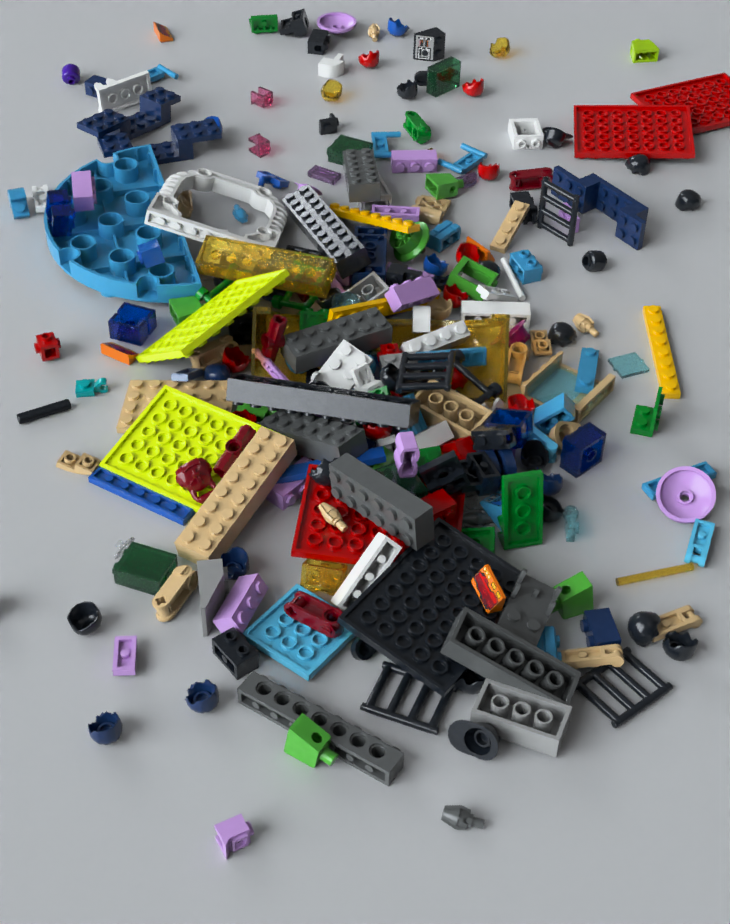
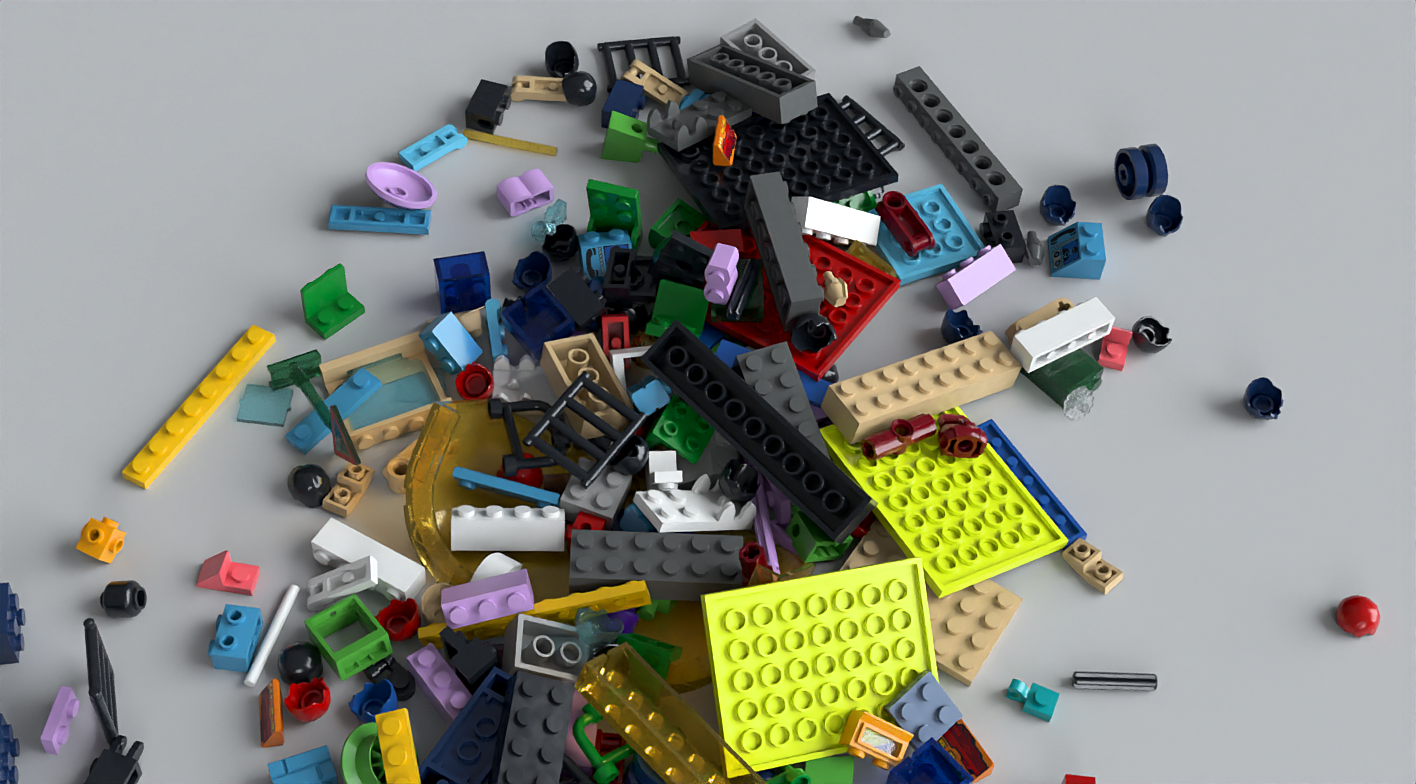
camera: 155 degrees left, 10 degrees up
(112, 611) = (1114, 348): none -> coral slope
(125, 655) = (1119, 285): lavender plate -> none
(139, 749) = (1141, 171): none -> dark blue wheel
(149, 344) = (923, 709): none -> sand blue plate
(152, 567) = (1061, 334): none -> white brick
(168, 667) = (1077, 251): none -> dark azure slope
(169, 319) = (875, 738): none -> light orange window
(206, 658) = (1034, 249): none -> dark grey piece
(211, 590) = (1003, 295): light grey slope -> none
(233, 834) = (1077, 89): lavender window -> none
(309, 743) = (981, 117): bright green torso -> none
(388, 464) = (743, 289): none -> black axle
(474, 739) = (822, 68): black piece -> none
(509, 227) = (181, 734): tan plate -> none
(518, 333) = (382, 506): magenta piece -> none
(560, 290) = (228, 576): none -> coral slope
(564, 340) = (299, 371): none -> clear green piece
(585, 324) = (258, 488): tan piece -> none
(606, 535) = (525, 192): none -> lavender brick
(628, 269) = (101, 539): none -> light orange brick
(695, 586) = (487, 106): none -> black brick

